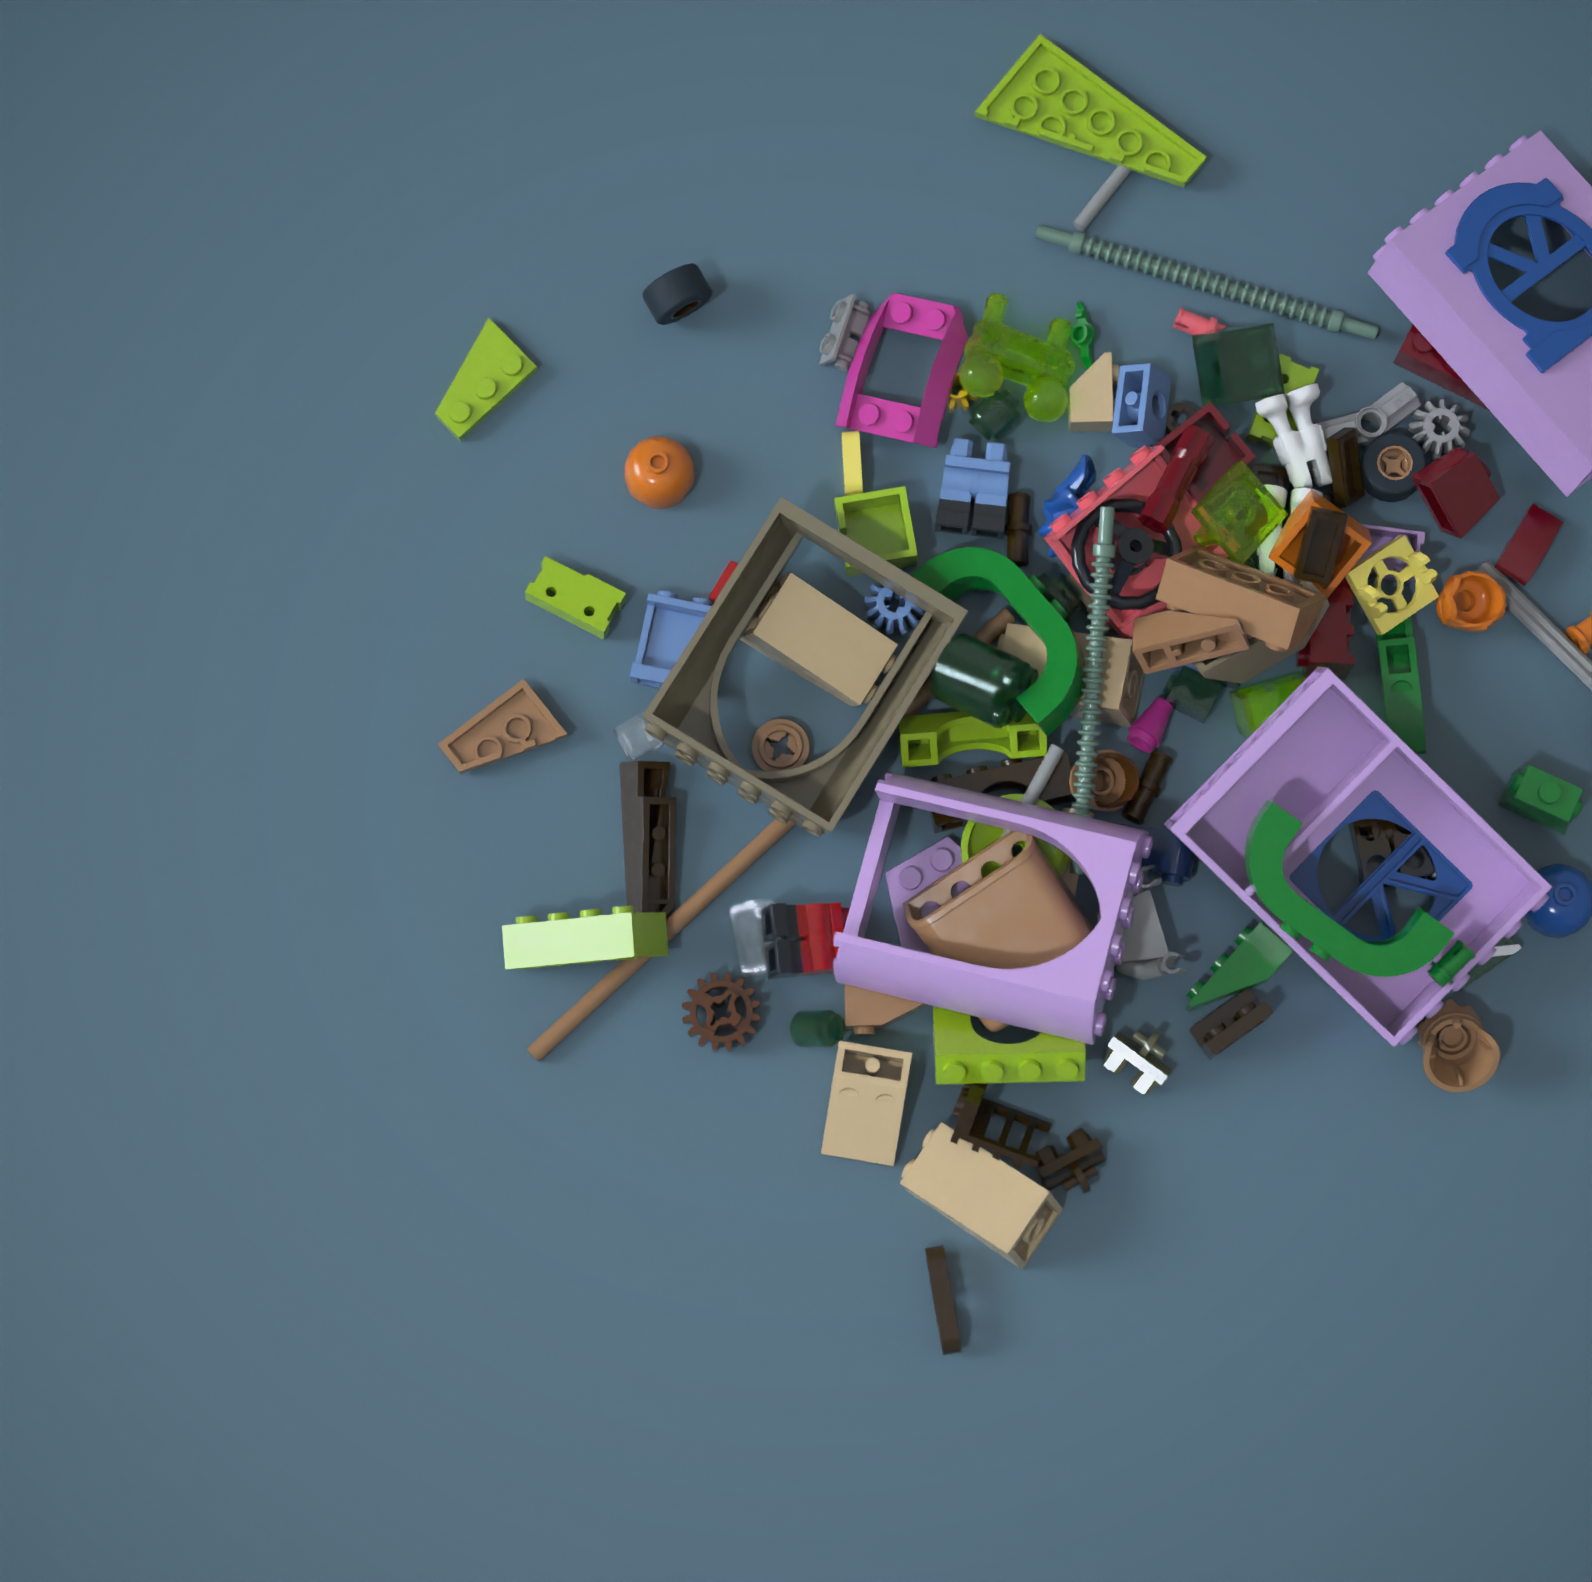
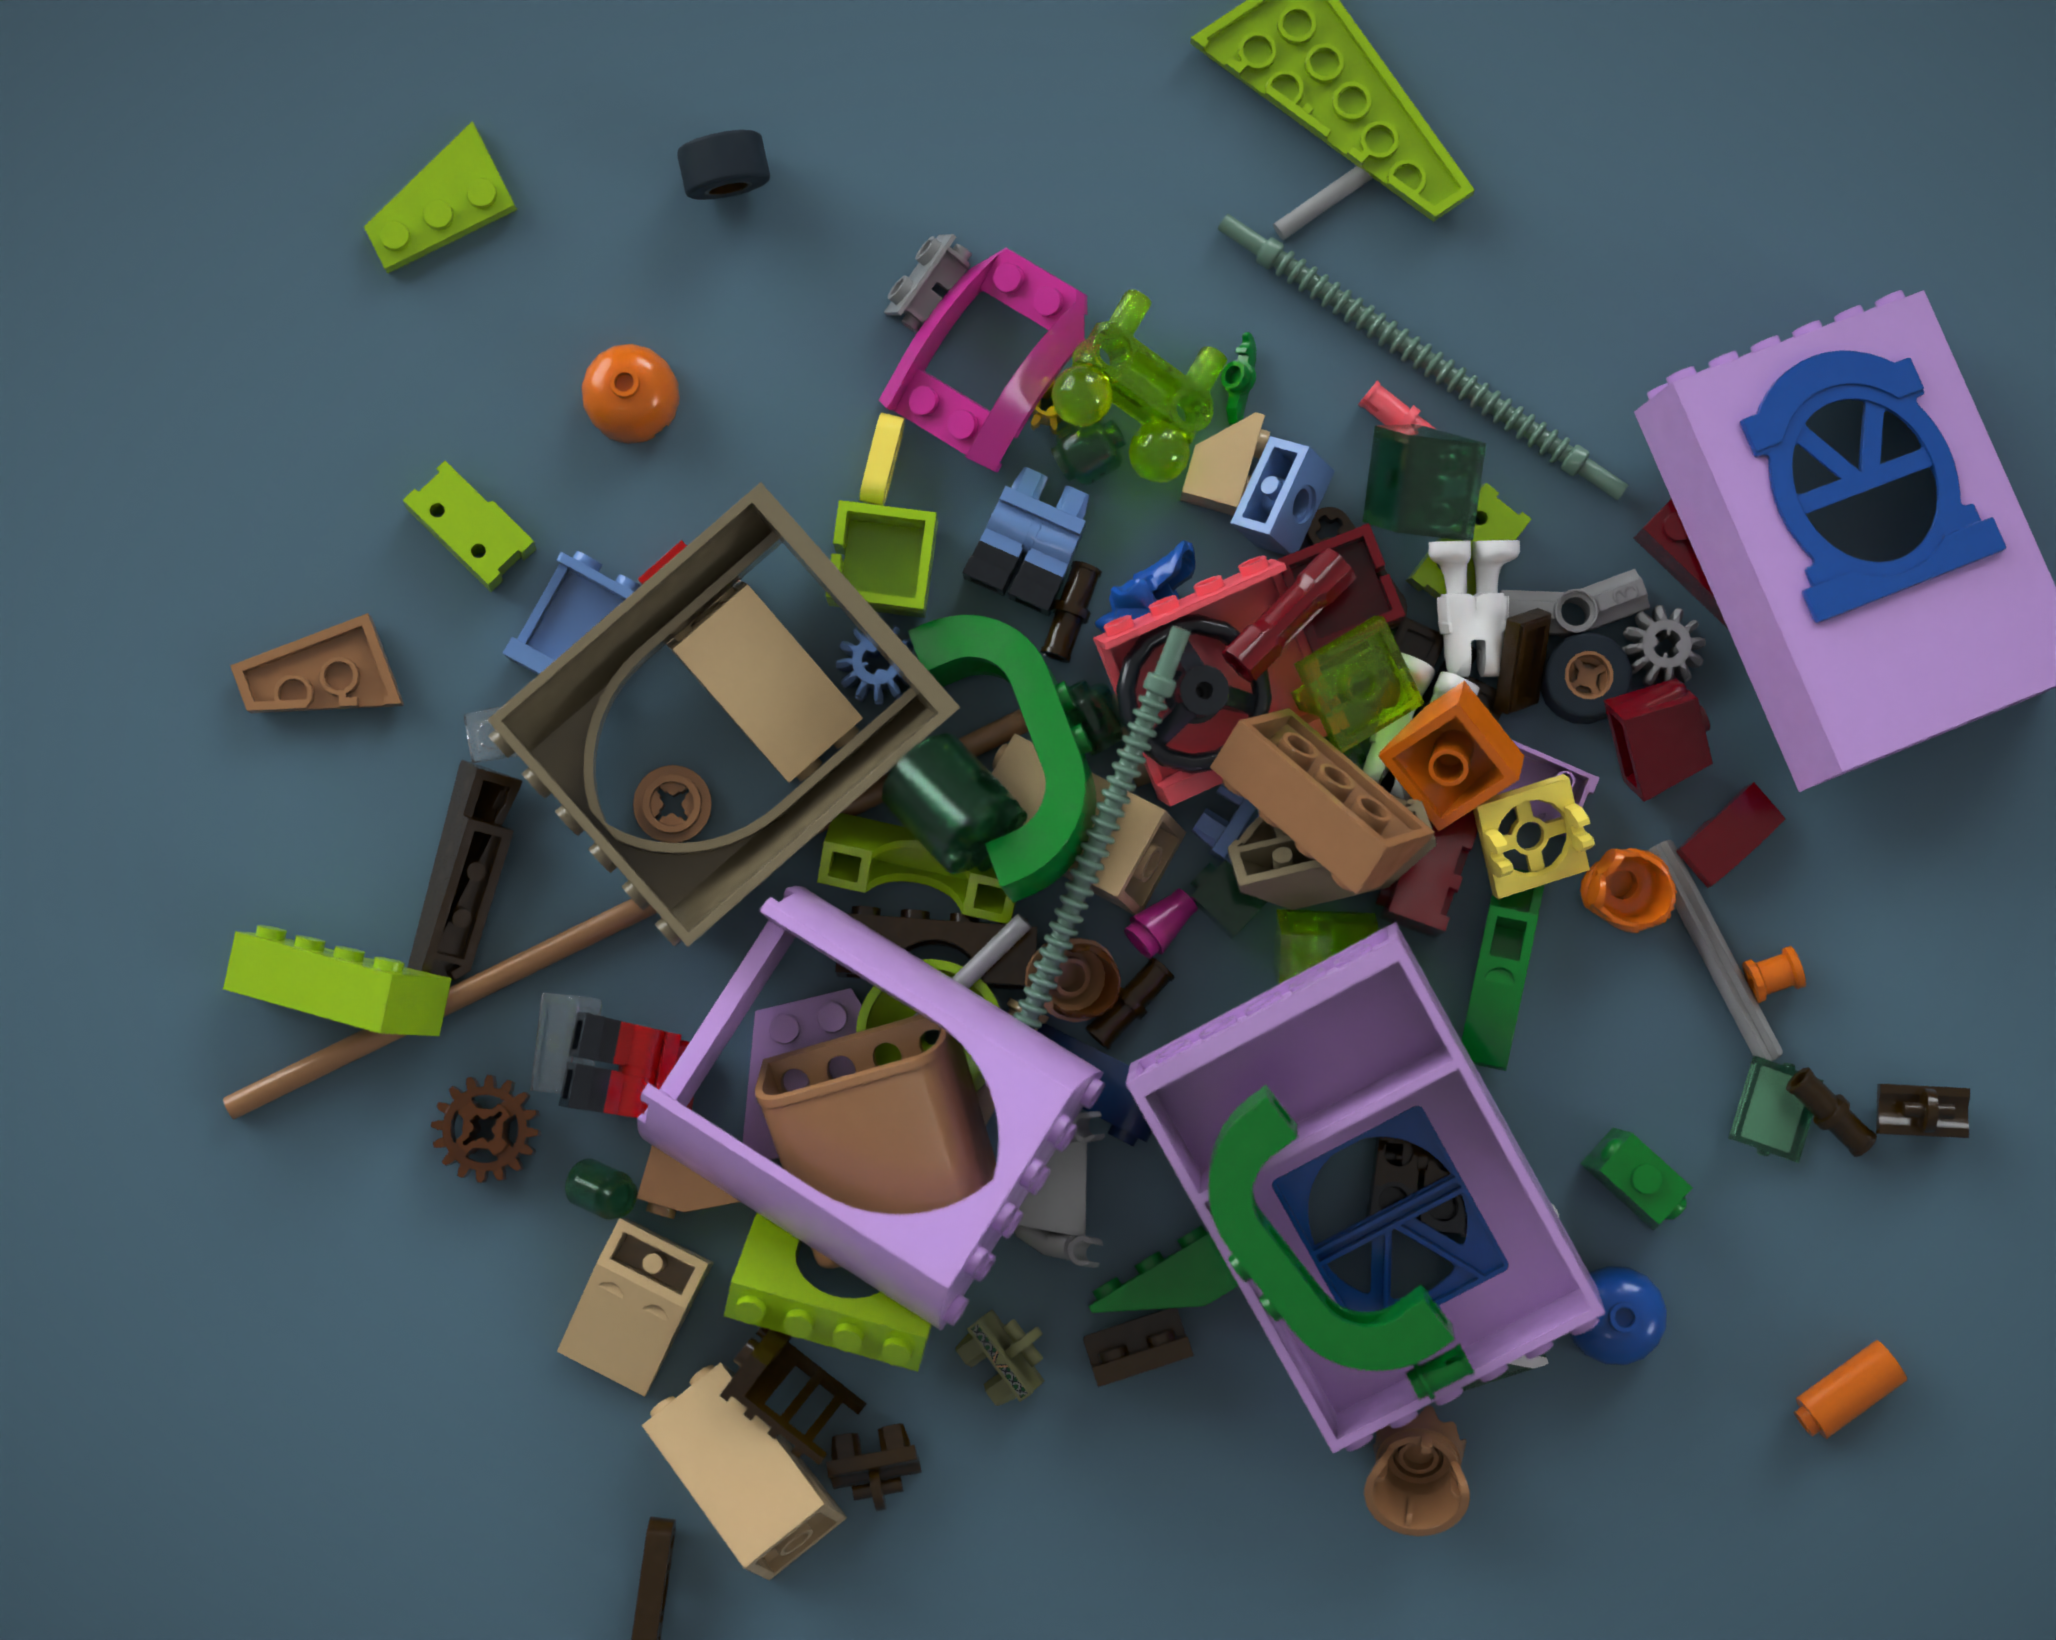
camera: 15 degrees right, 5 degrees up
(1184, 638) = (1223, 830): medium nougat slope -> none
(1320, 545) = (1449, 762): dark brown tile -> none

